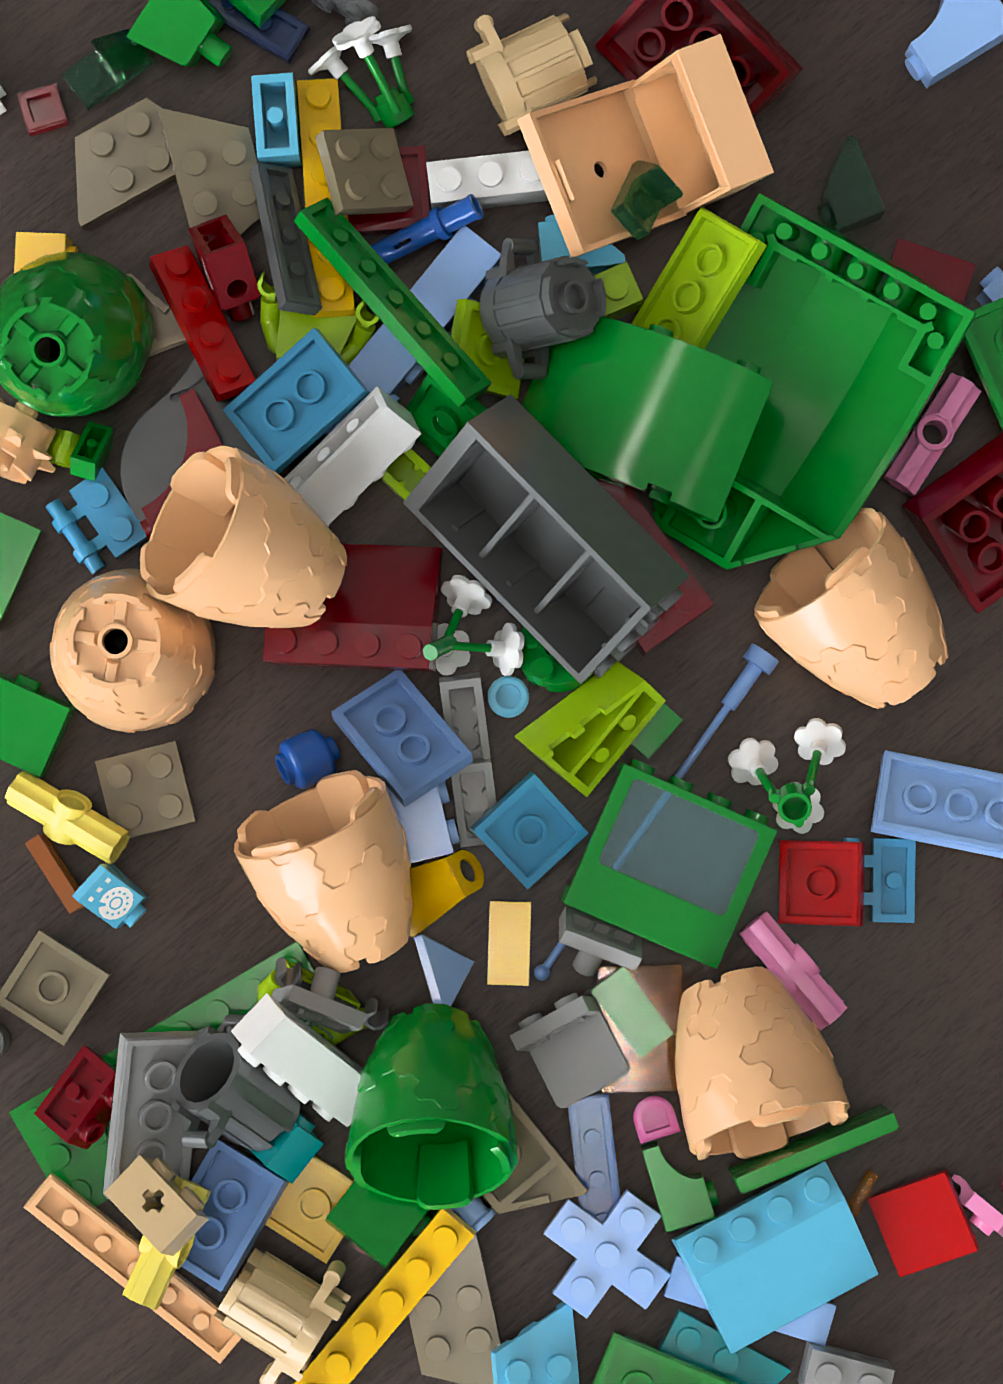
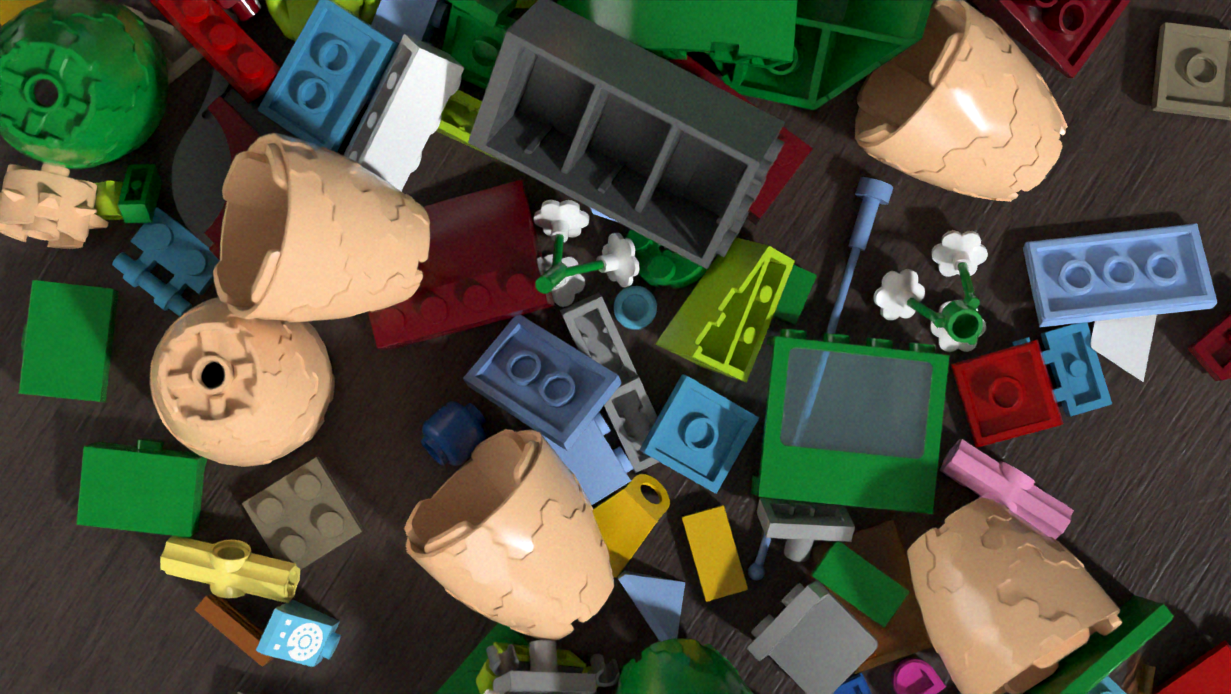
camera: 20 degrees left, 0 degrees up
(945, 870) = (1125, 342): none -> white sticker

